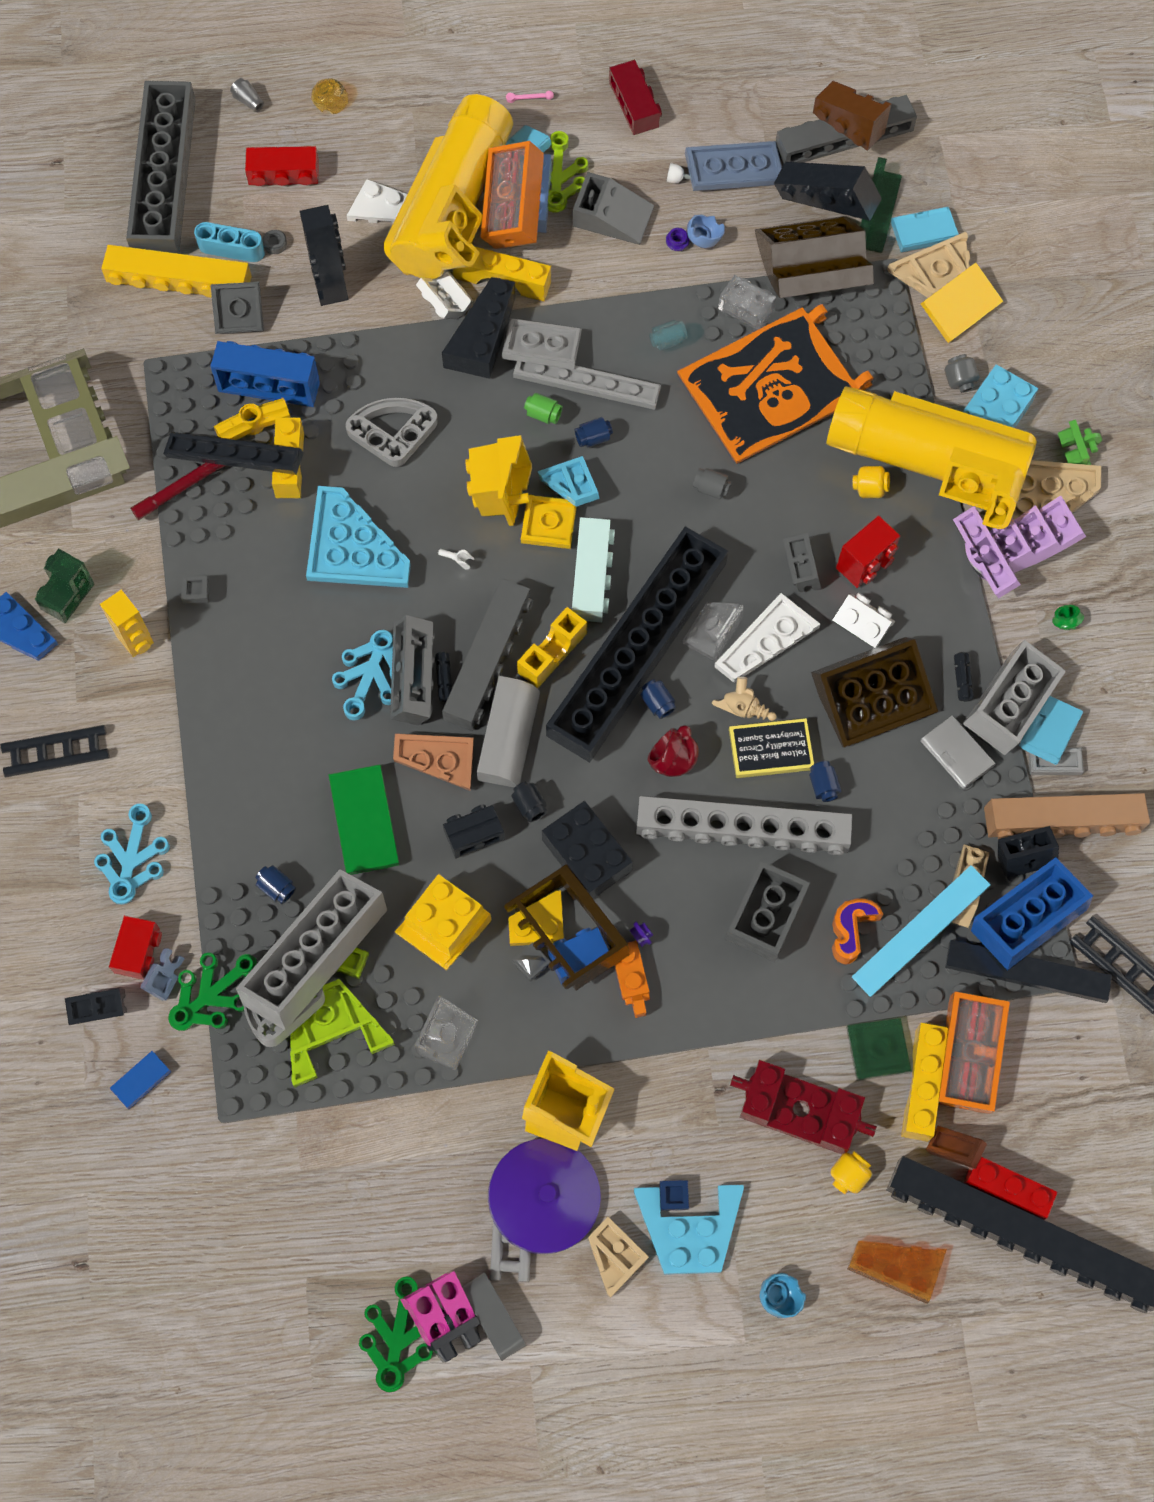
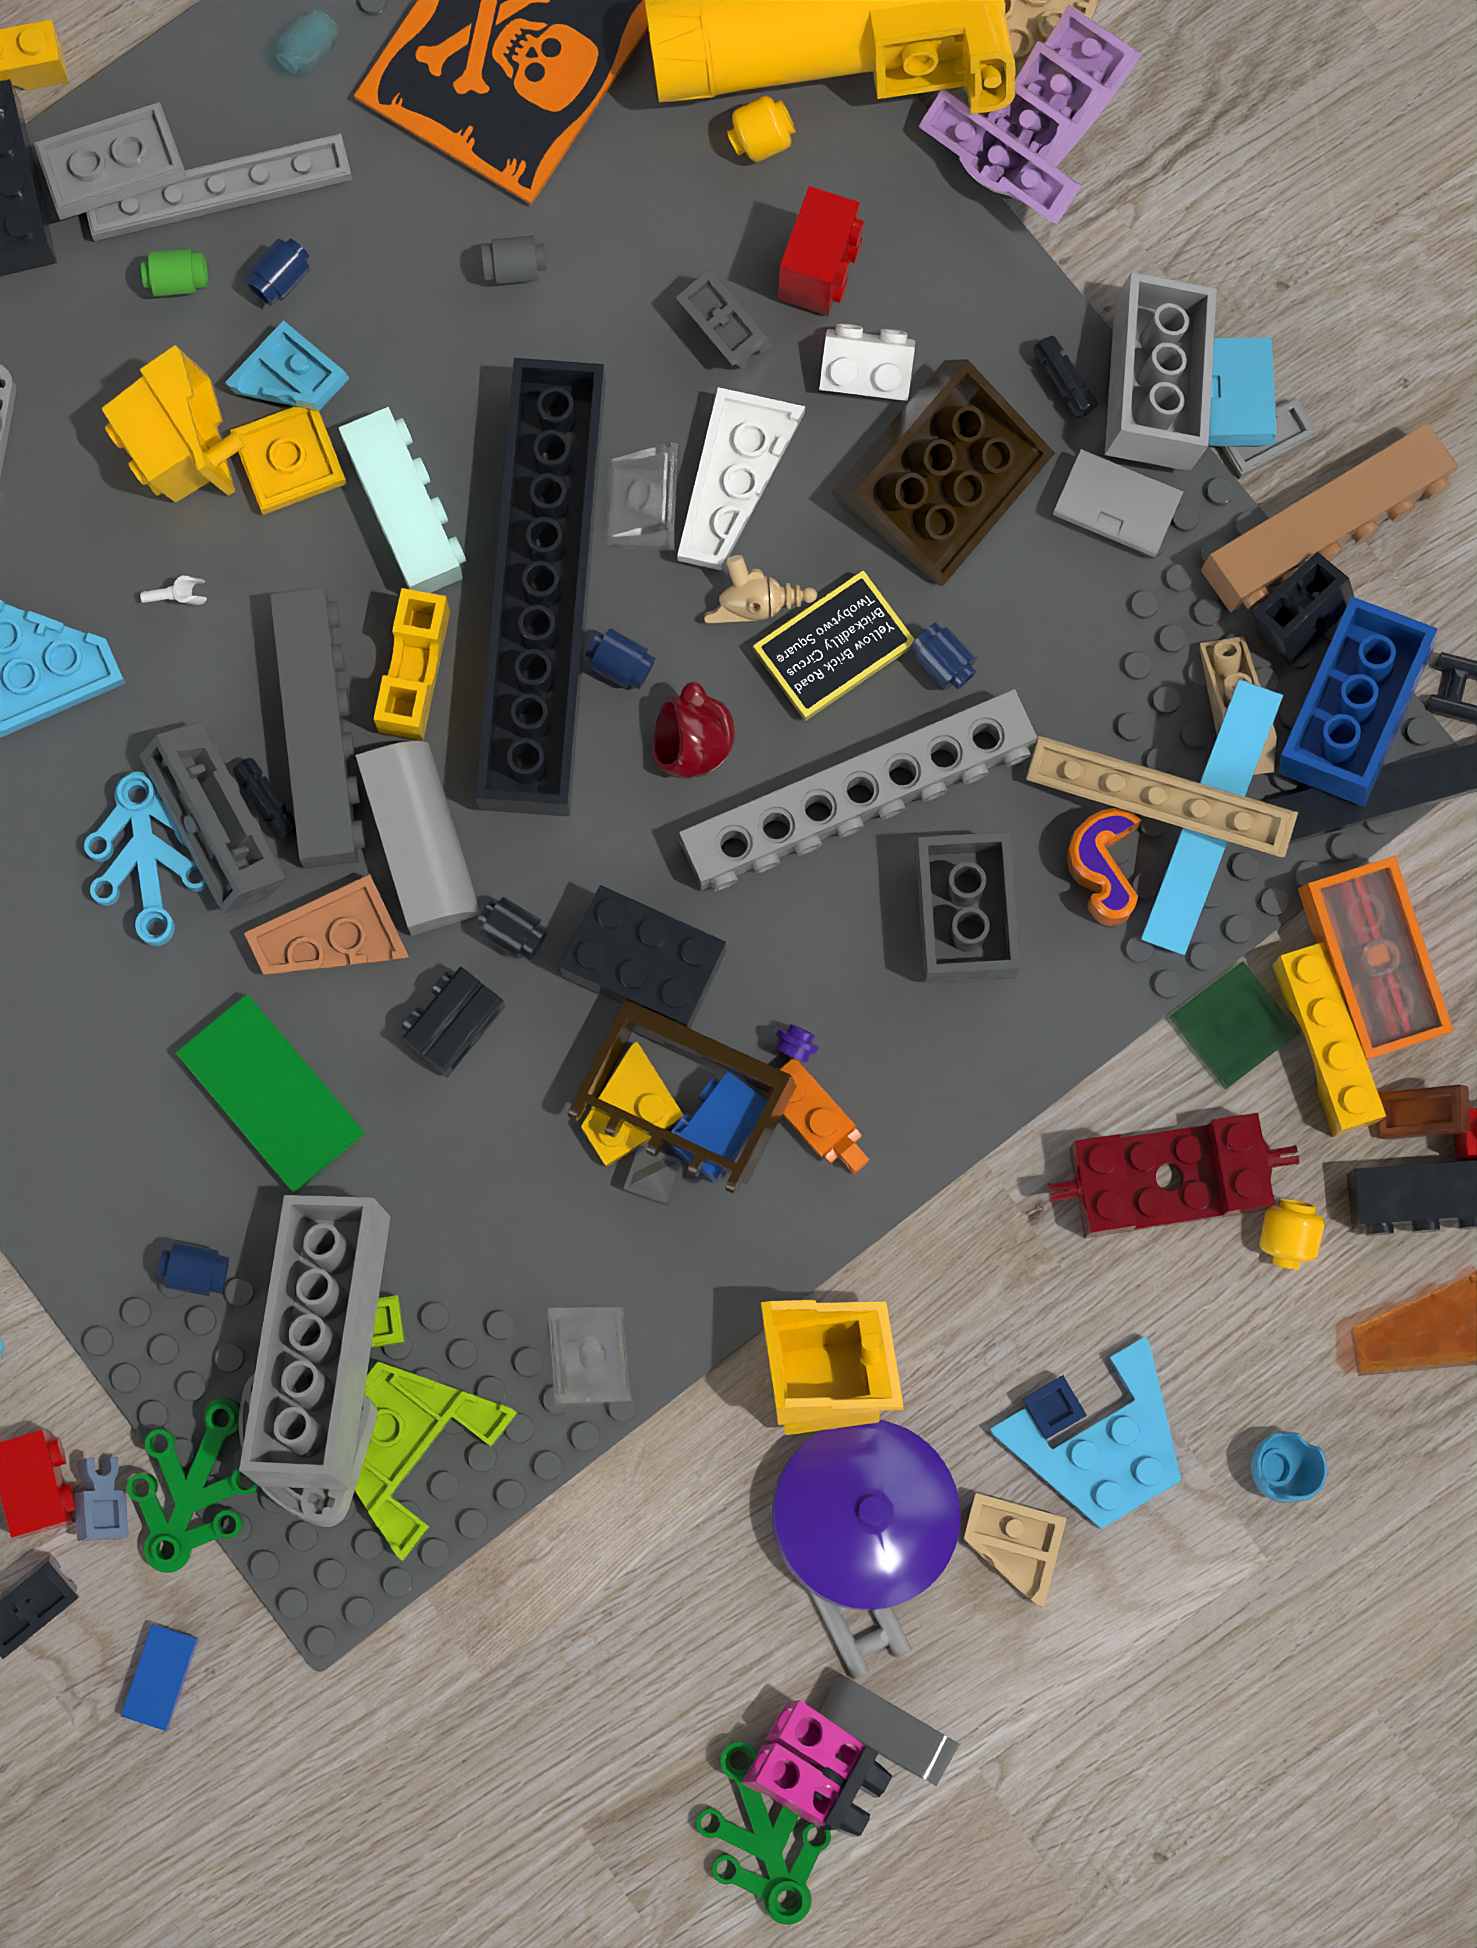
camera: 30 degrees left, 10 degrees up
(443, 922) = (489, 1191): yellow piece -> none
(900, 906) = (1162, 796): none -> tan tile
(1068, 617) = (1172, 196): green hat -> none

